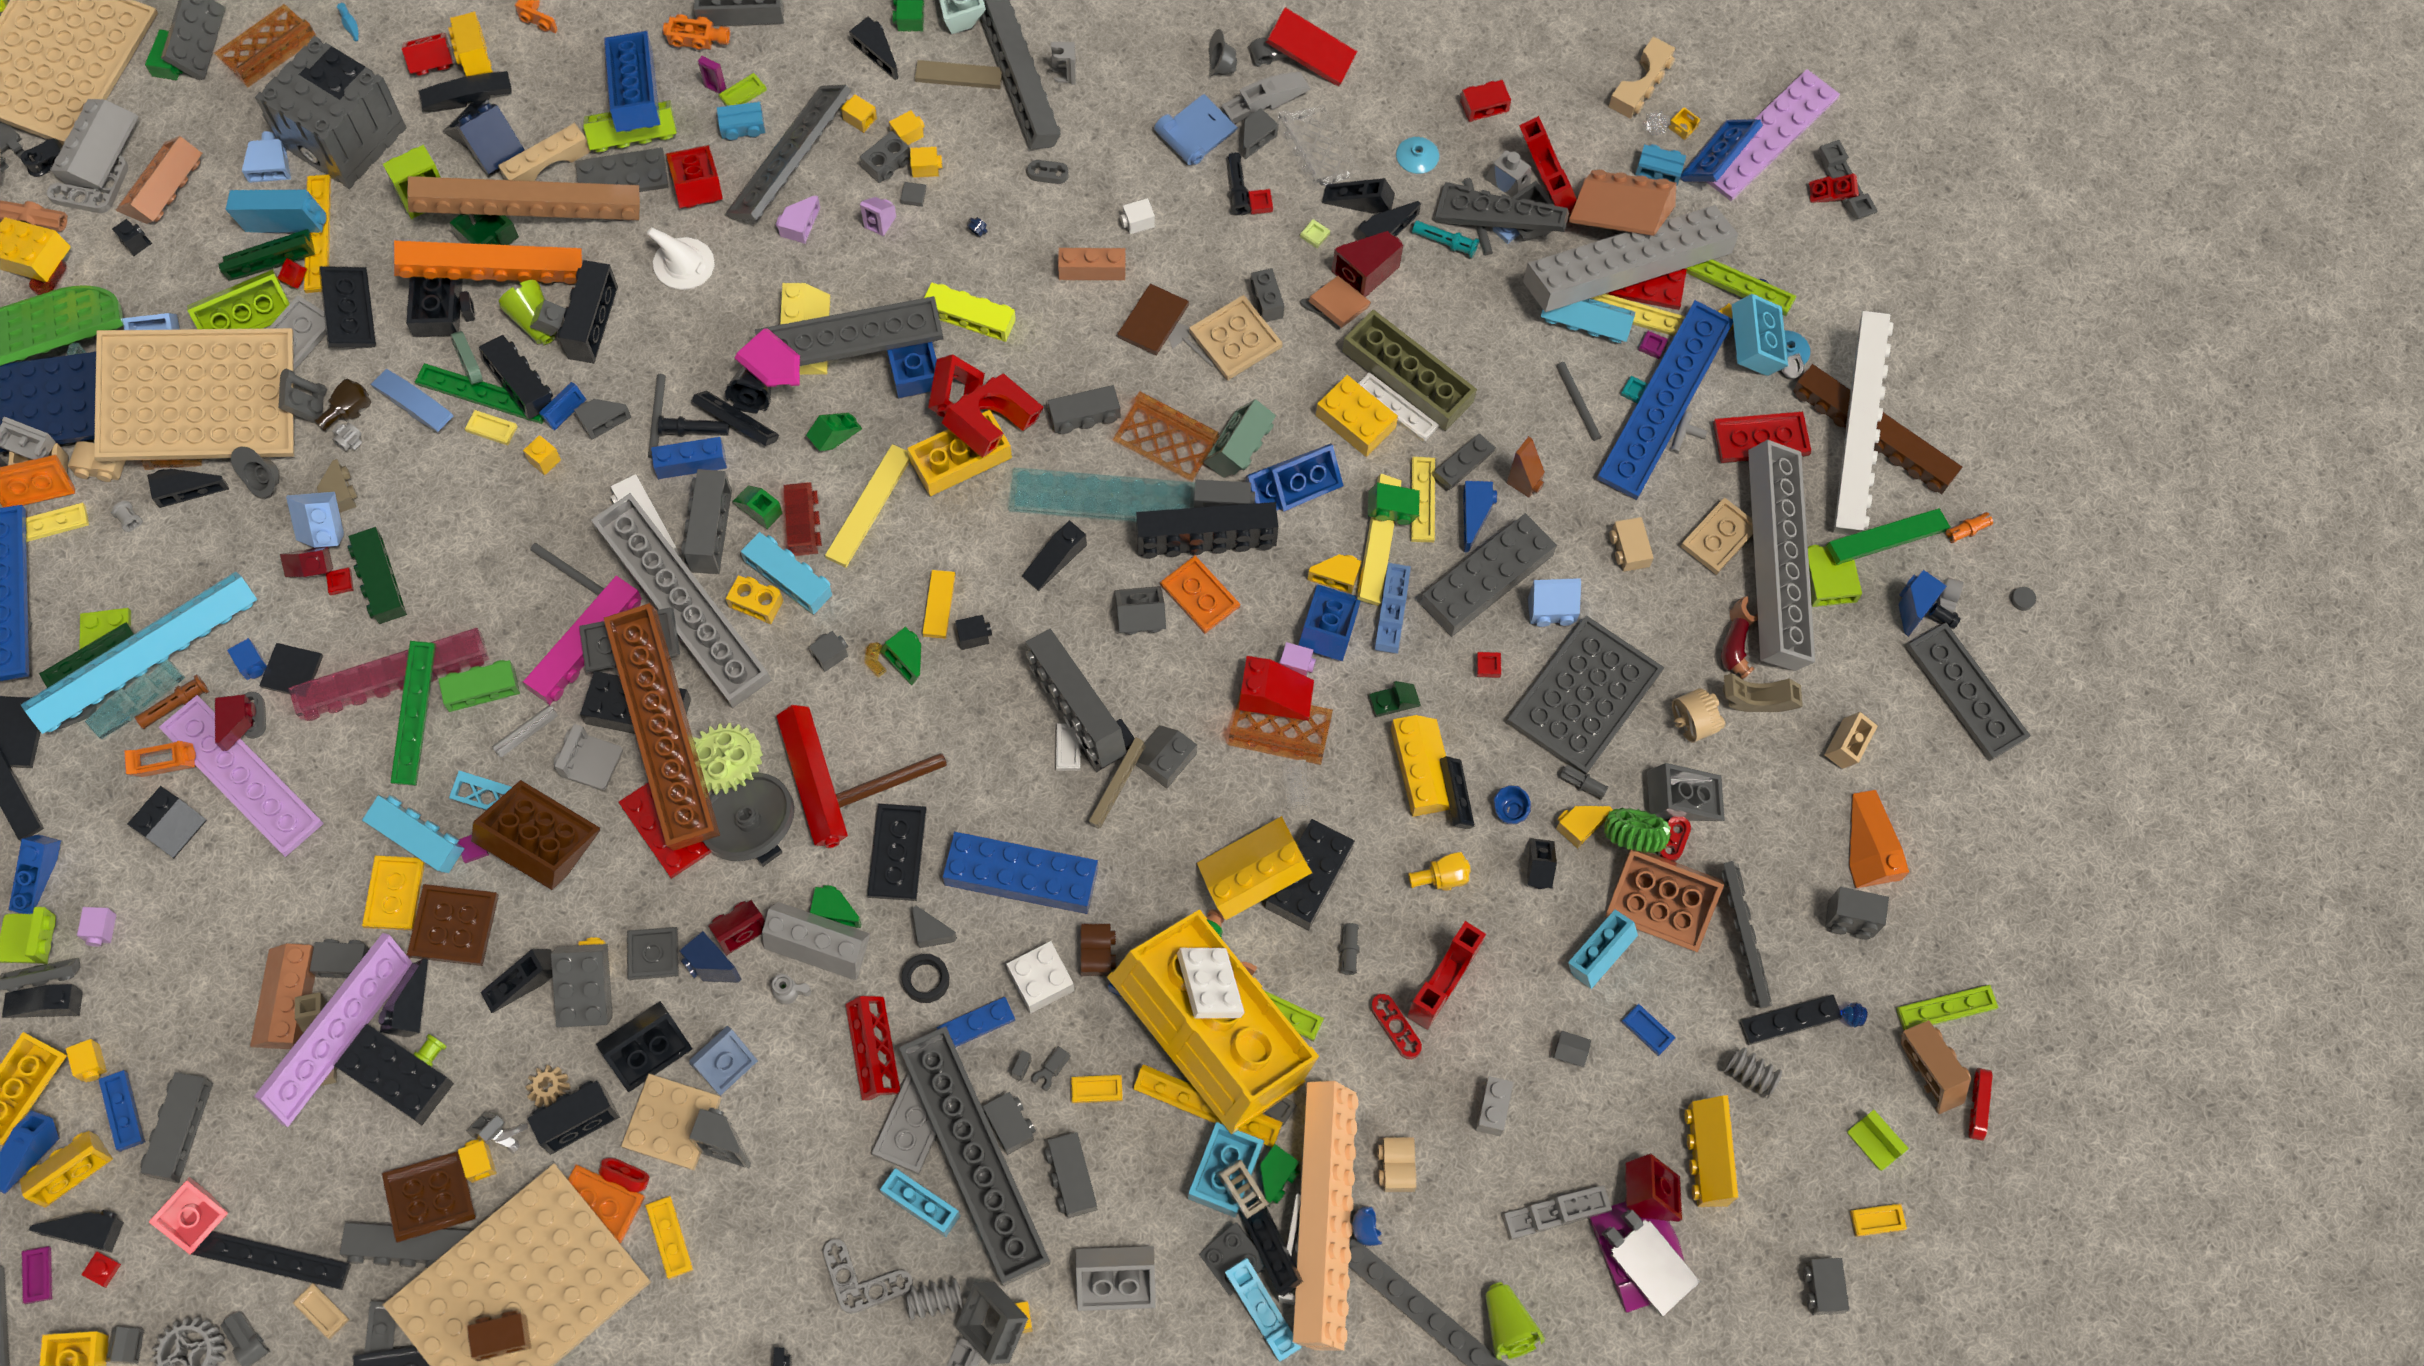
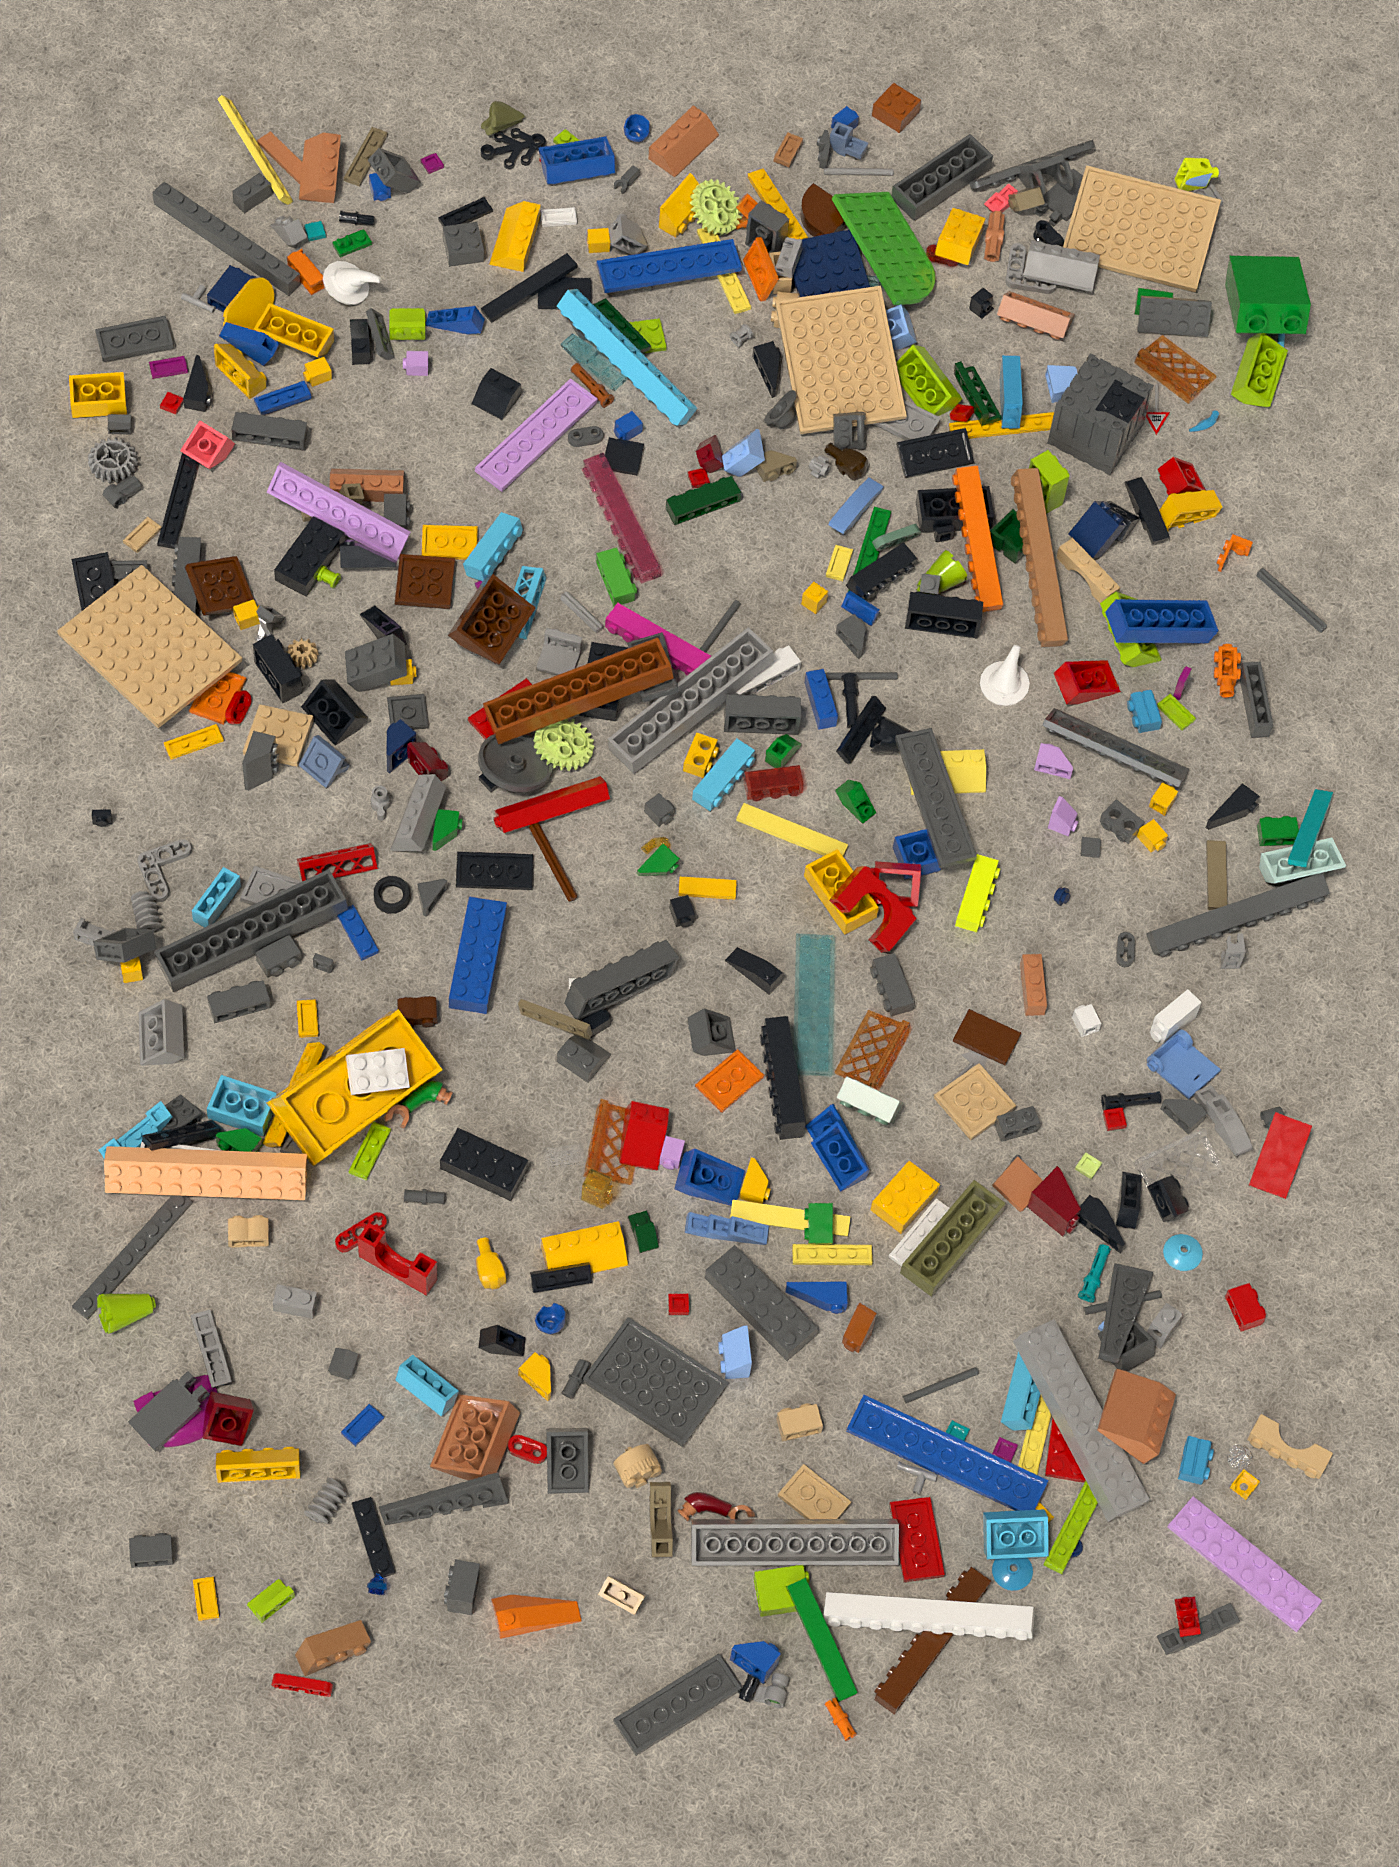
camera: 85 degrees right, 5 degrees down
(160, 759) = (543, 381): orange window -> none
(232, 719) = (575, 420): dark red slope -> none
(413, 713) = (589, 535): green tile -> none
(498, 1336) = (116, 632): reddish brown brick -> none
(639, 168) = (1085, 630): dark grey plate -> none
(770, 360) = (902, 740): dark pink tile -> none
(925, 162) = (1121, 852): yellow brick -> none
(1040, 977) = (393, 972): white brick -> none
(1052, 1067) = (323, 986): dark grey bar -> none
(1143, 125) = (1175, 1017): none -> white brick
(1221, 55) = (1259, 1085): dark grey piece -> none
(1222, 493) = (811, 1087): dark grey window -> none
(1250, 1183) = (219, 1105): dark tan slope -> none
(1253, 868) = (483, 1116): yellow slope -> none
(1349, 742) = (597, 1189): none -> clear yellow brick
(1363, 155) = (1168, 1198): none -> black slope
(1364, 1227) = (198, 1207): blue hair -> none
(1464, 461) = (870, 1286): dark grey plate -> none
(1548, 164) = (1191, 1353): red arch -> none
(1637, 830) = (528, 1410): bright green gear -> none
(1721, 150) = (1214, 1512): blue tile -> none
(1795, 367) = (992, 1570): tile -> none
(1948, 1007) = (386, 1667): lime tile -> none
(2023, 598) = (773, 1763): dark grey tile -> none

